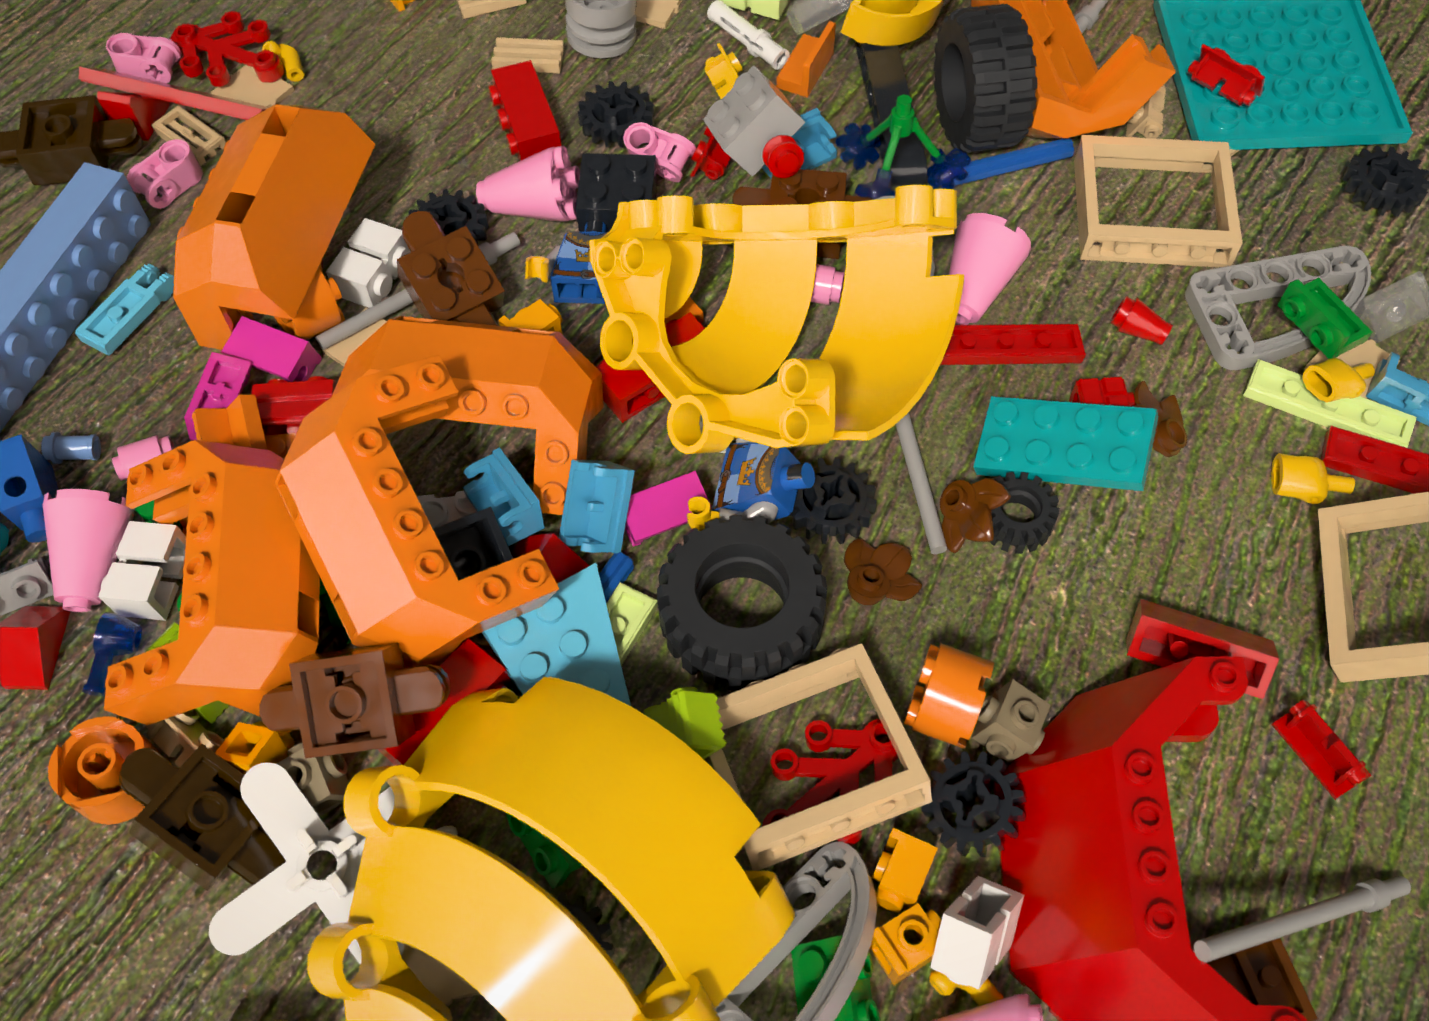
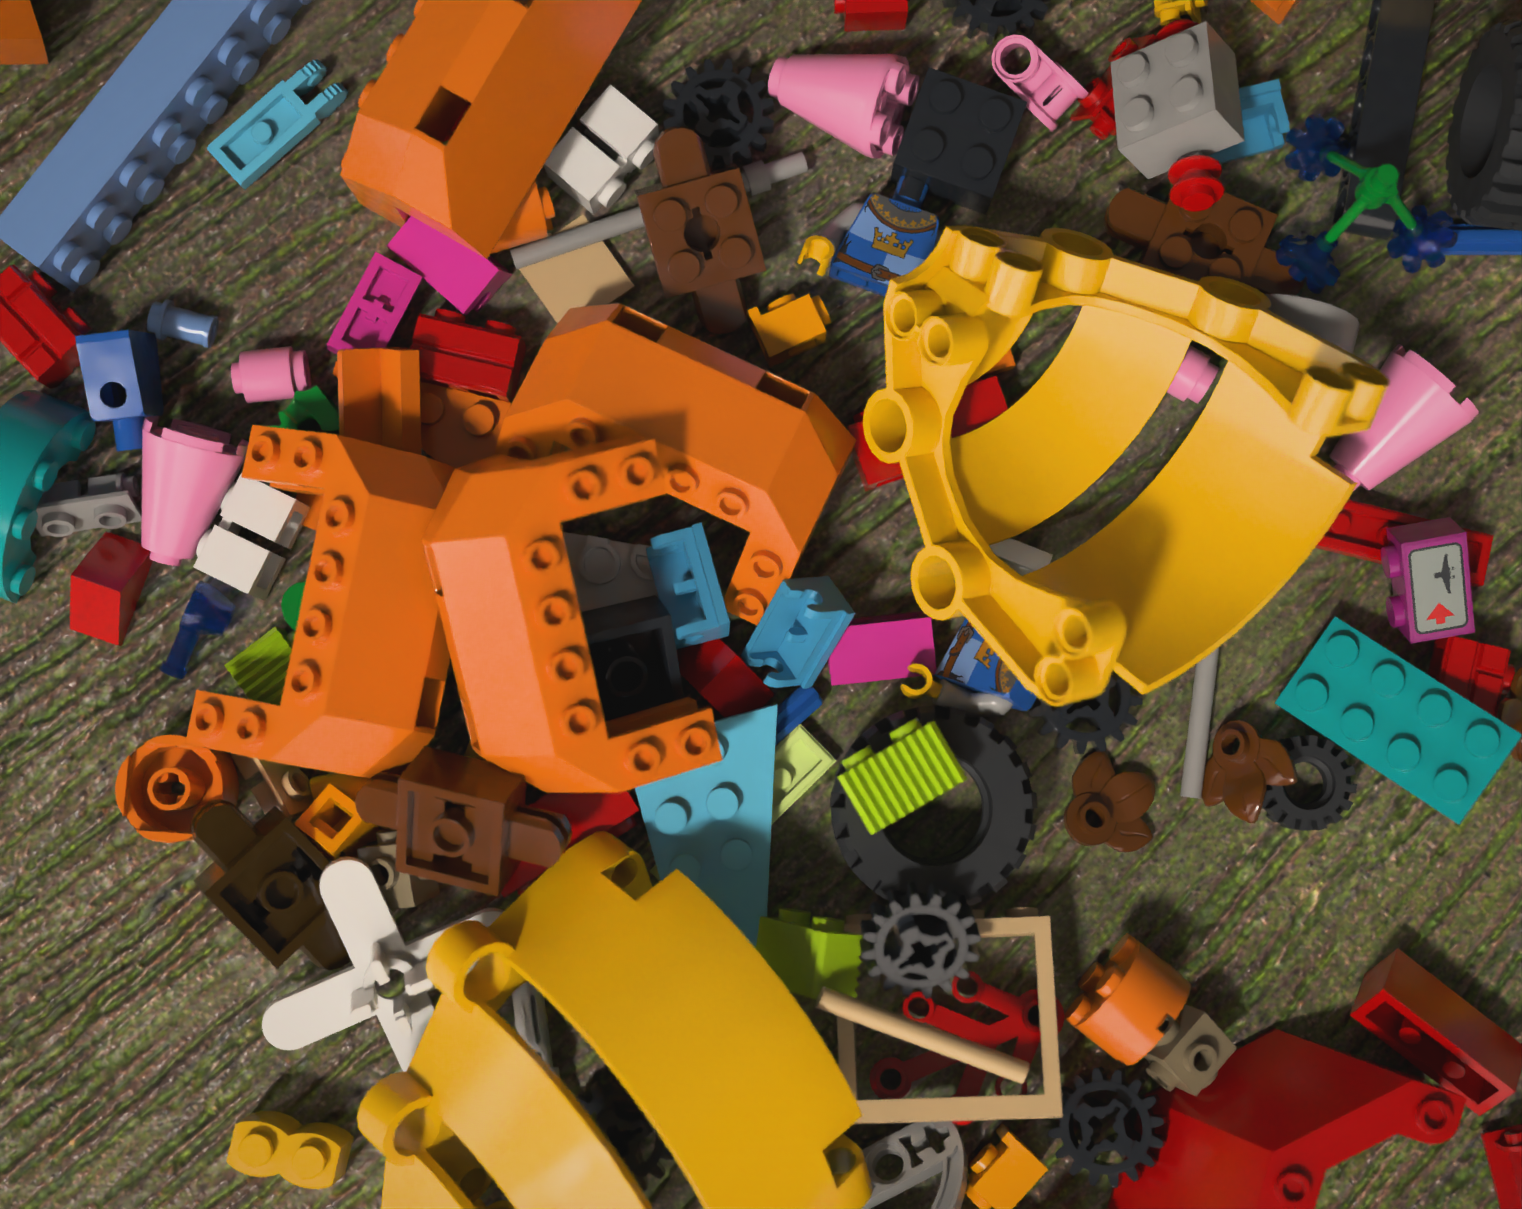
camera: 20 degrees right, 25 degrees up
(704, 560) = (900, 776): none -> lime brick
(777, 692) = (919, 943): none -> black gear
(789, 747) = (922, 1035): none -> tan bar
(1045, 350) = (1428, 580): none -> brick

